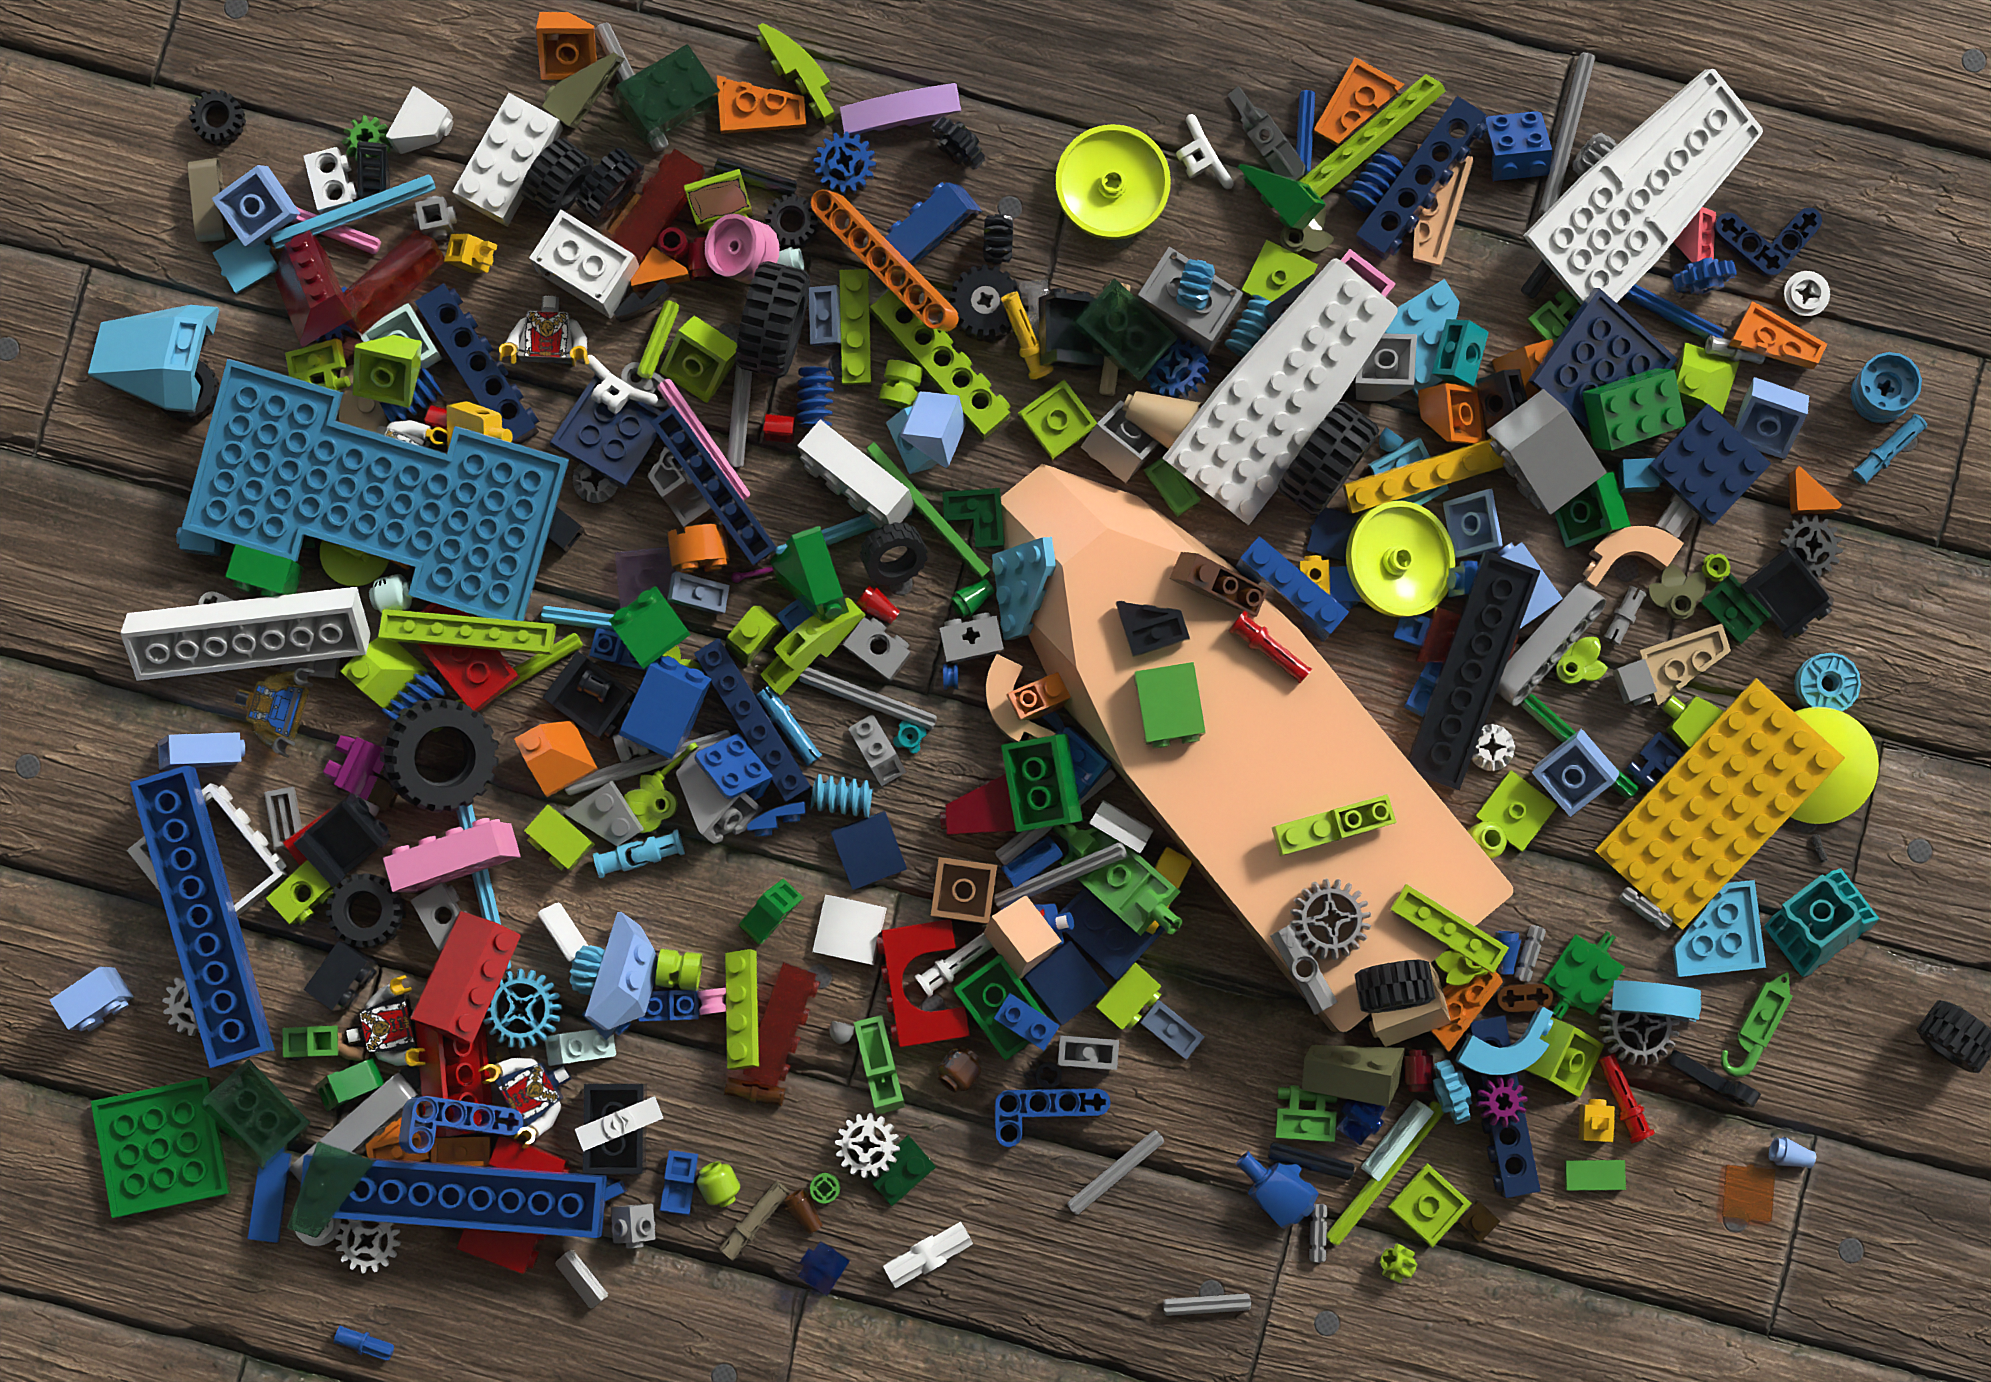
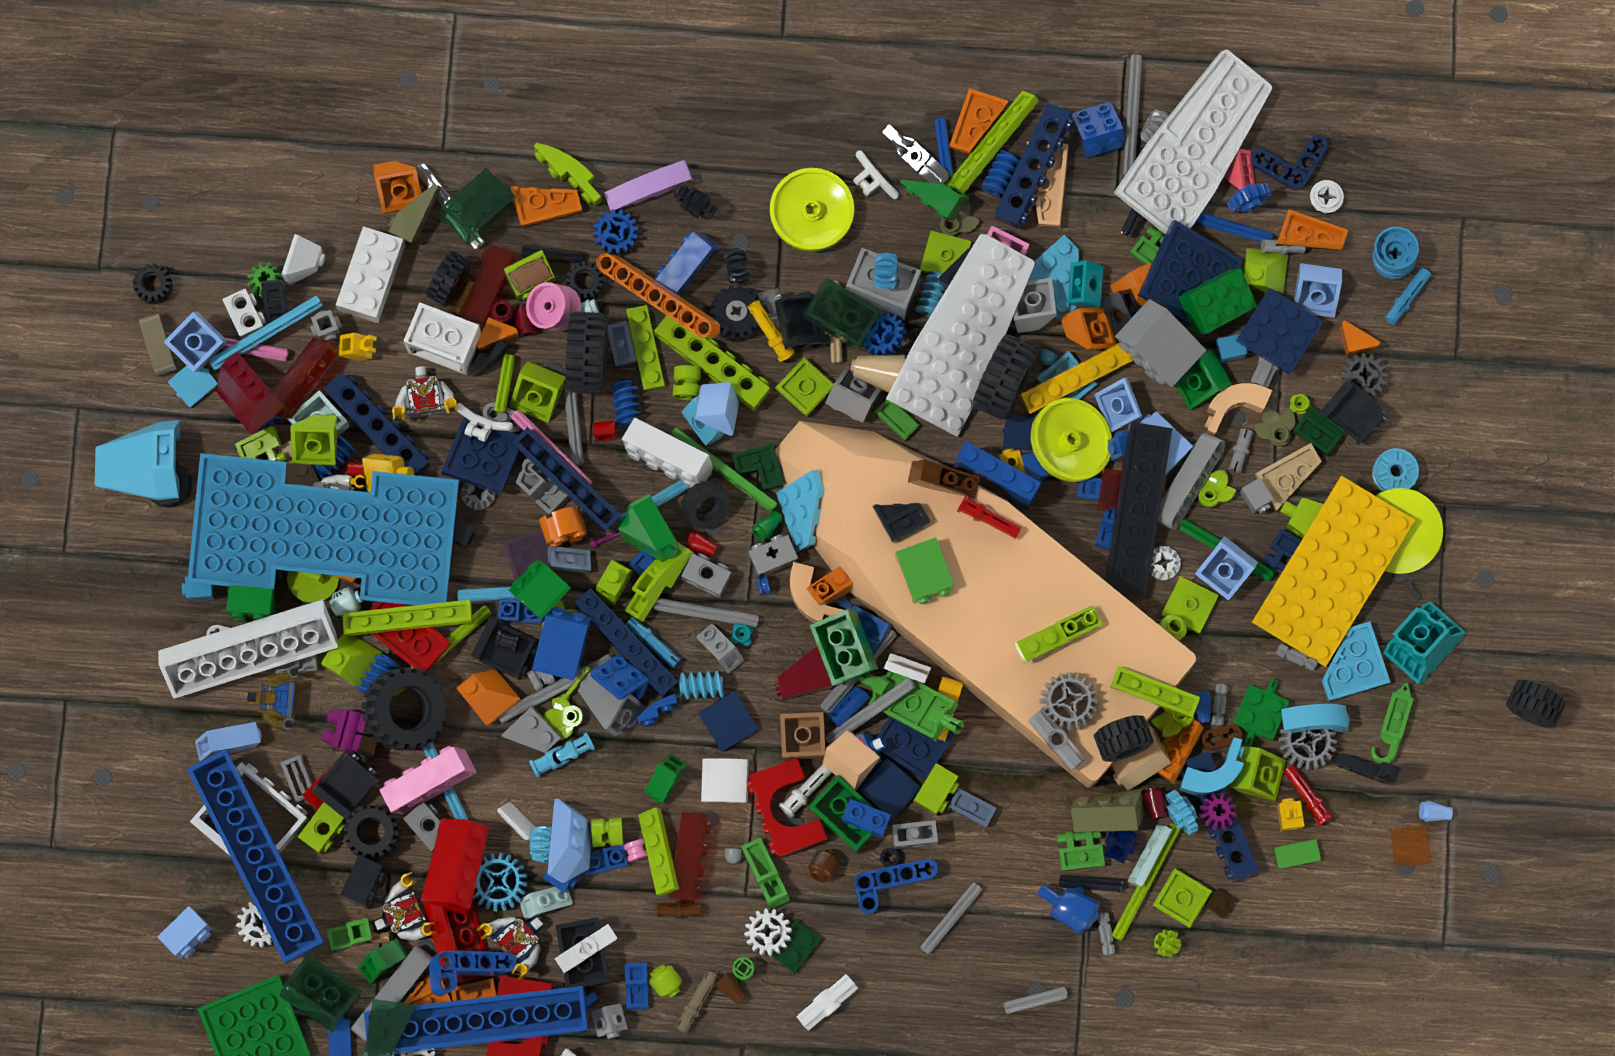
camera: 10 degrees left, 5 degrees down
(556, 177) = (410, 280): black tyre -> none
(559, 838) = (502, 754): lime brick -> none
(822, 1267) = (752, 1025): clear blue brick -> none

